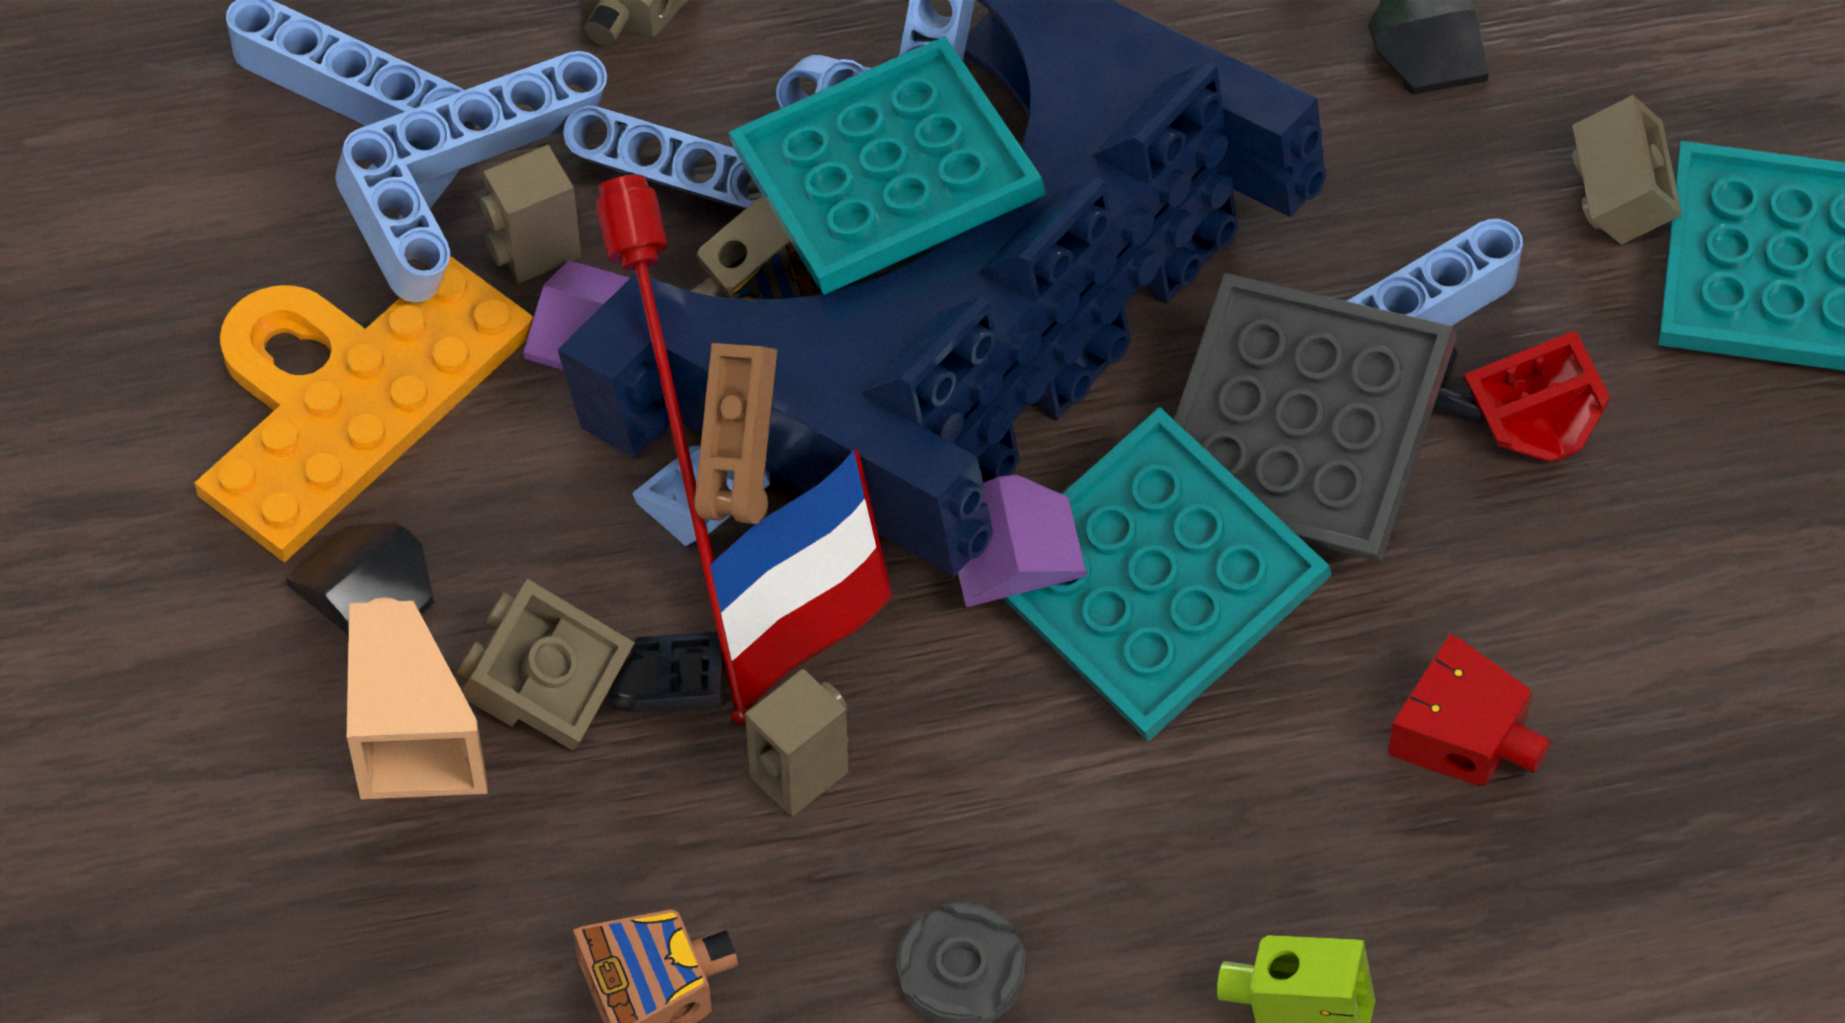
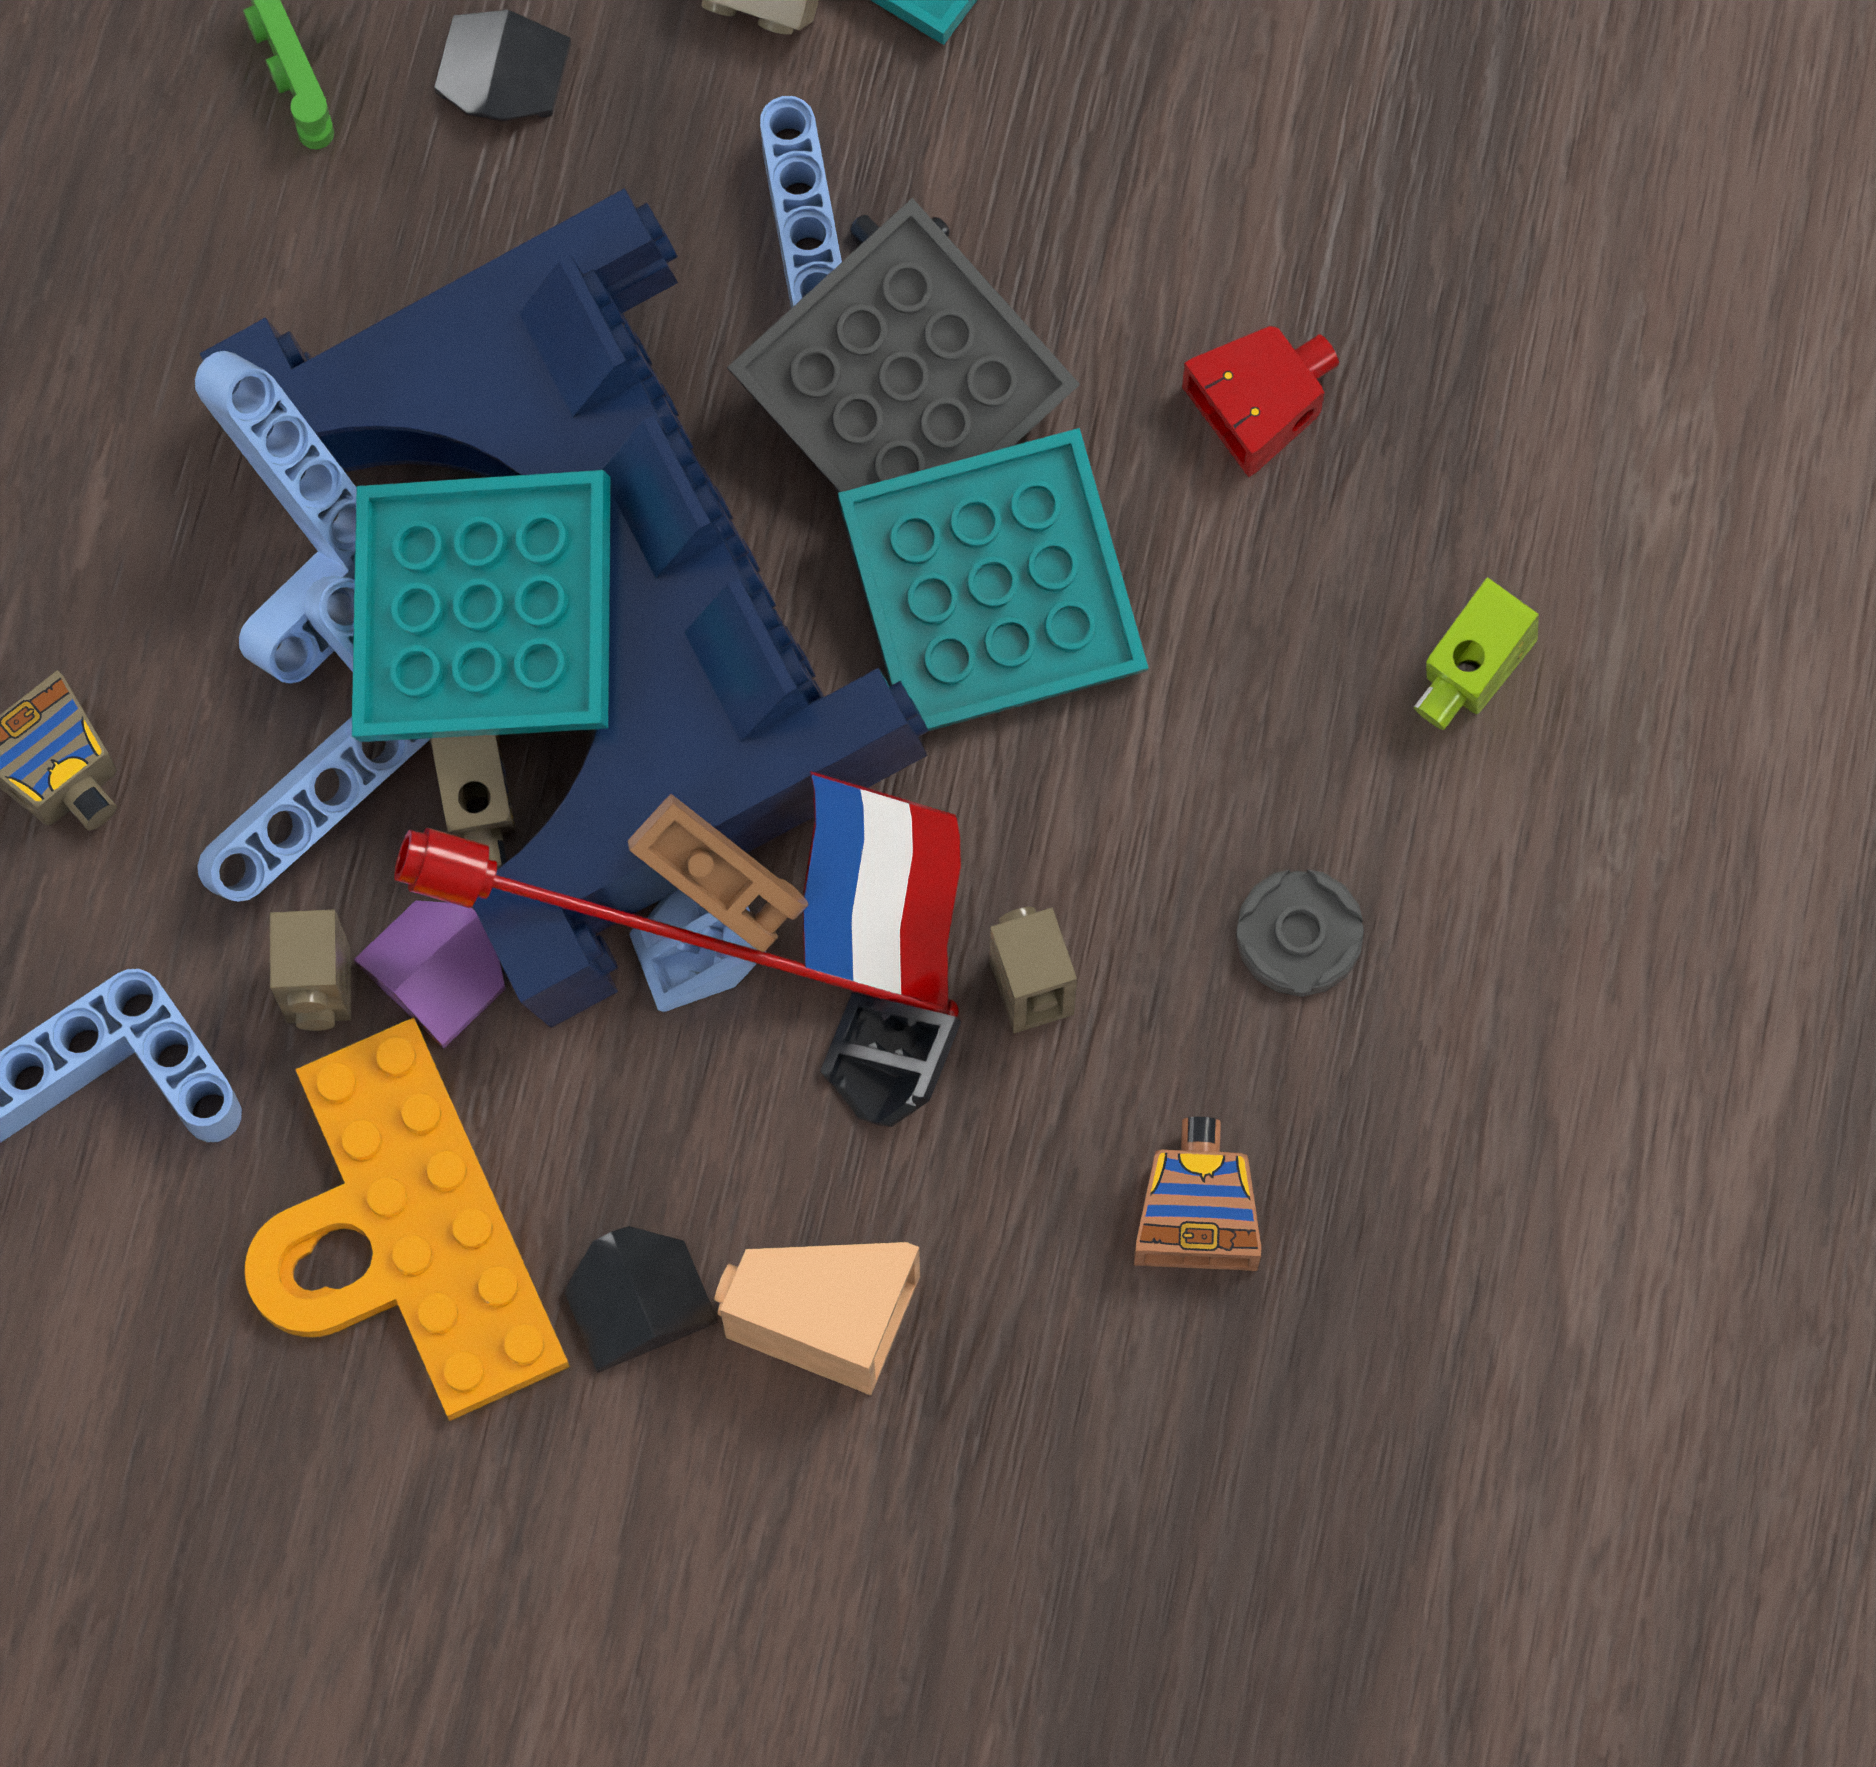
camera: 65 degrees left, 15 degrees up
(451, 148) = (199, 1012): light blue beam -> none
(543, 664) = (822, 1166): dark tan plate -> none
(1030, 542) = (924, 662): medium lavender slope -> none
(1541, 398) = (964, 166): red slope -> none

